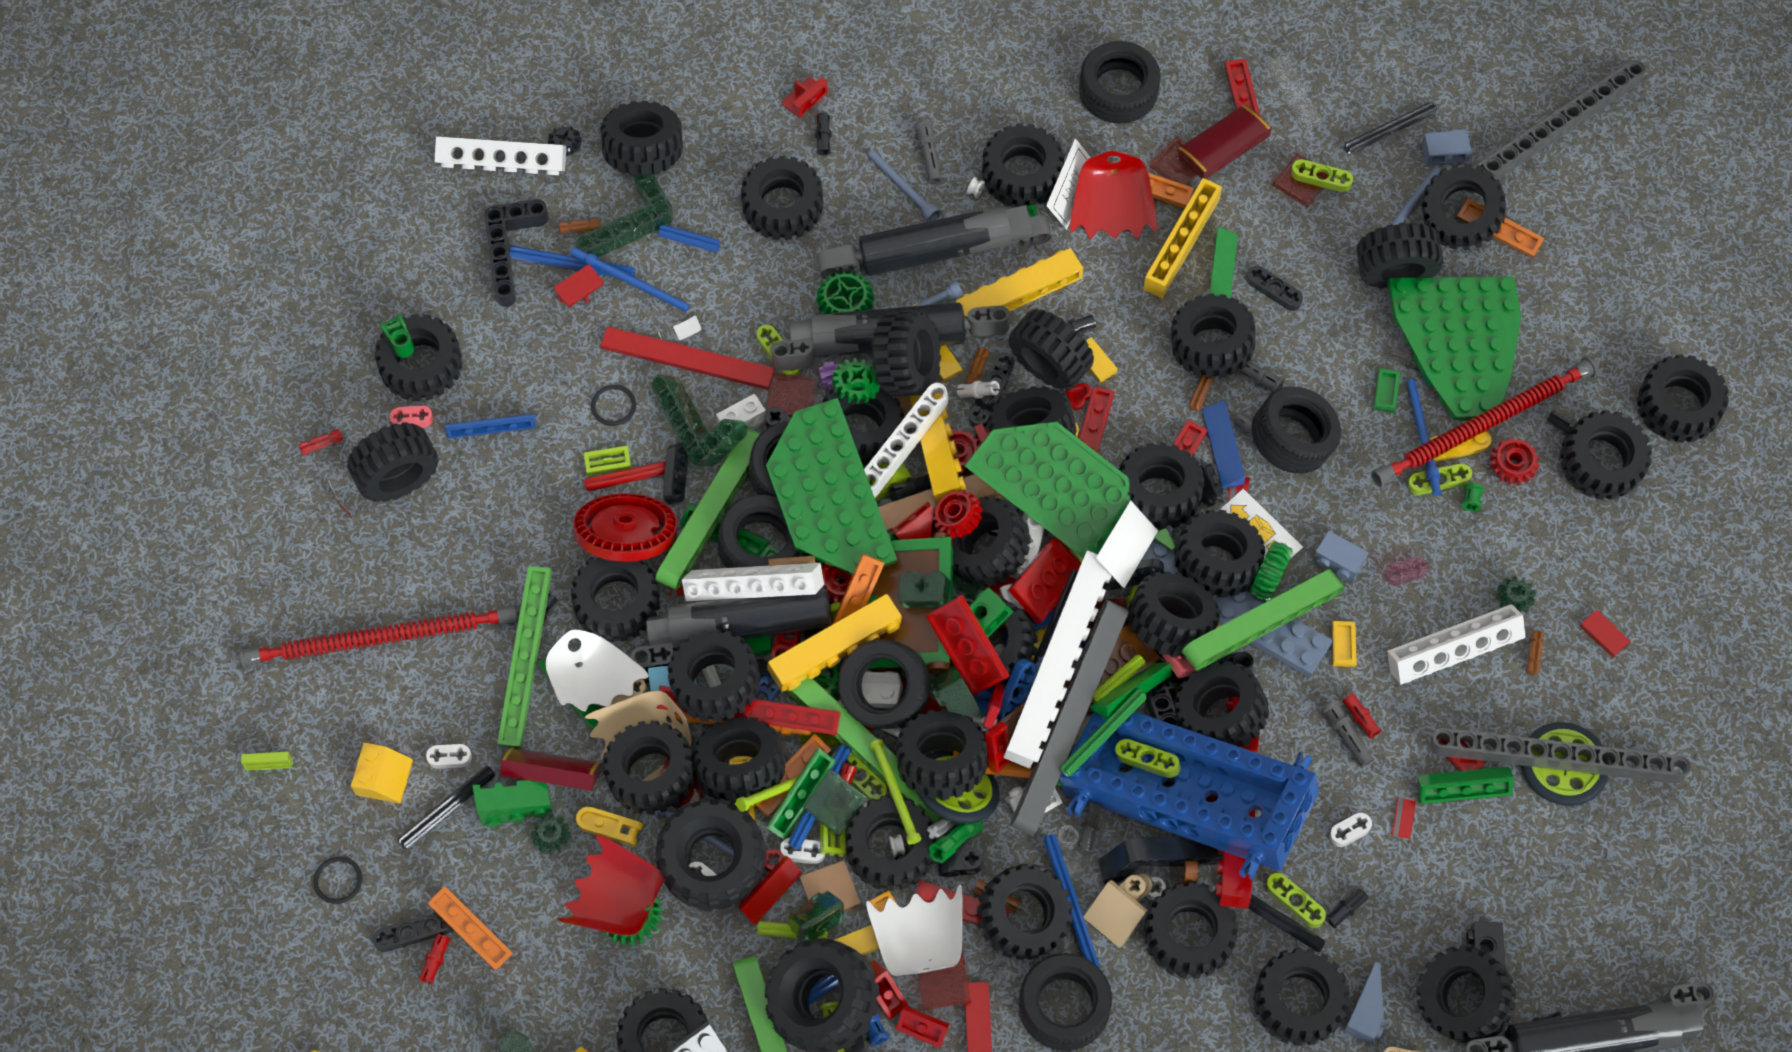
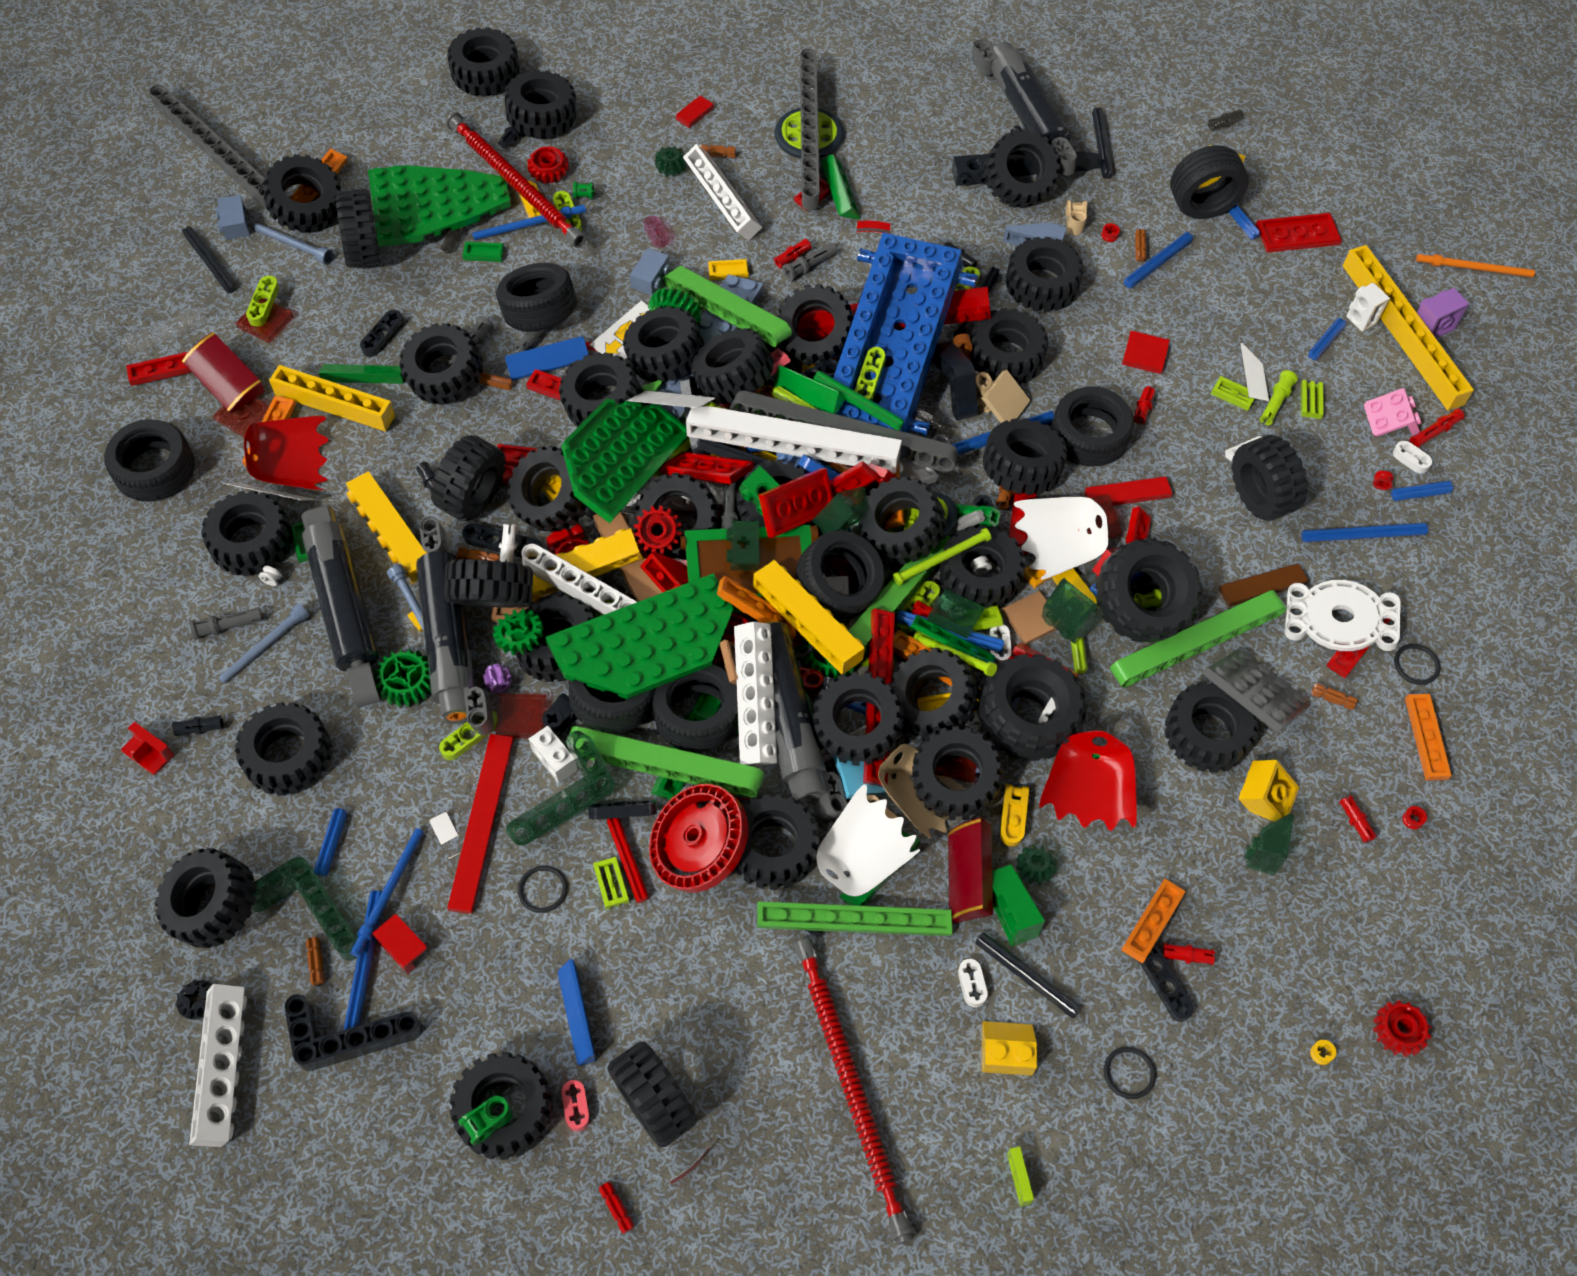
camera: 100 degrees left, 5 degrees down
(971, 591) = (729, 506): none -> dark grey pin

